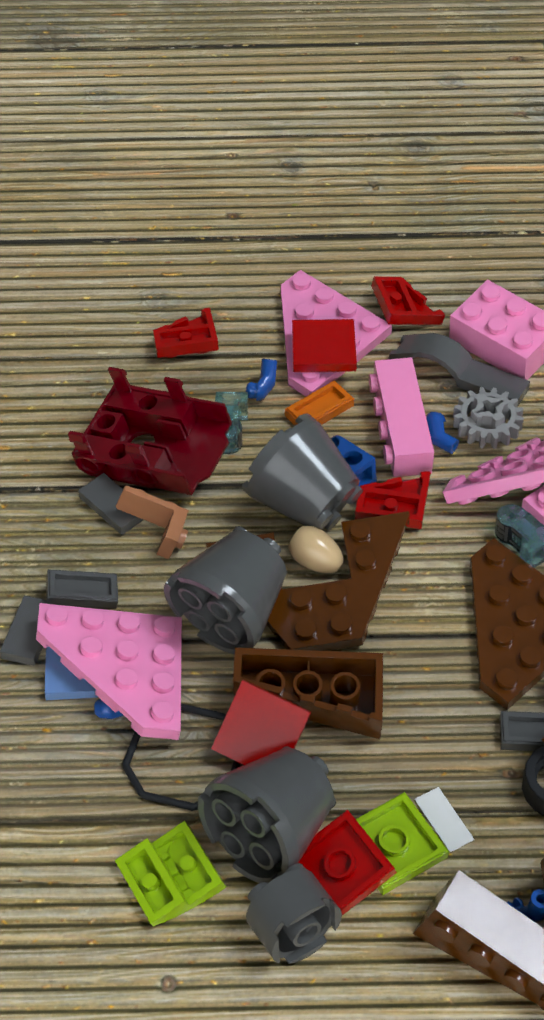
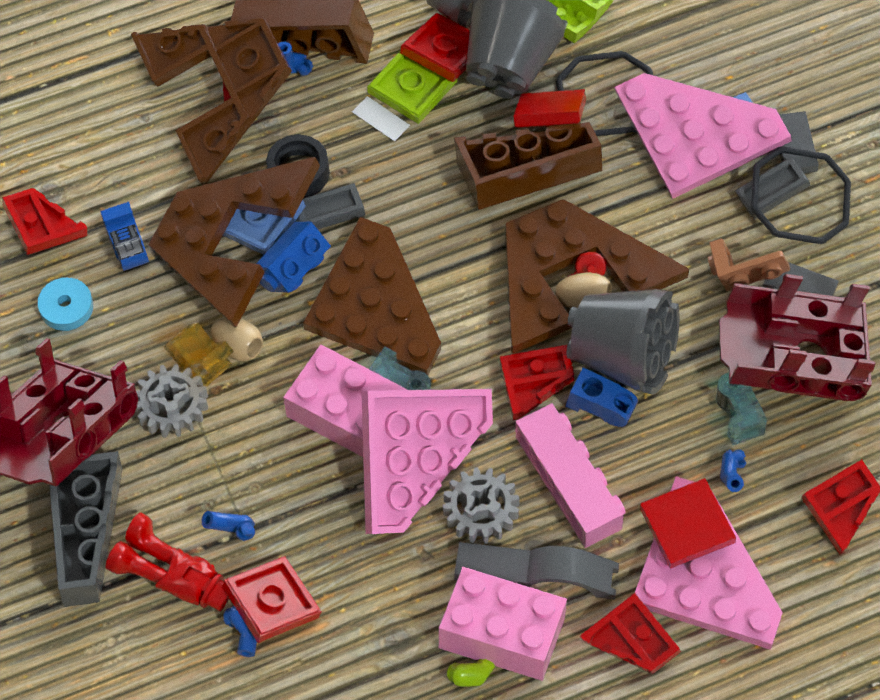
camera: 160 degrees right, 10 degrees up
(66, 536) = (792, 236): none -> black piece
(229, 589) = (633, 189): dark grey cone -> none
(299, 575) = (590, 262): none -> red piece
(322, 404) = (661, 467): orange tile -> none
(437, 432) = (528, 474): blue arm -> none

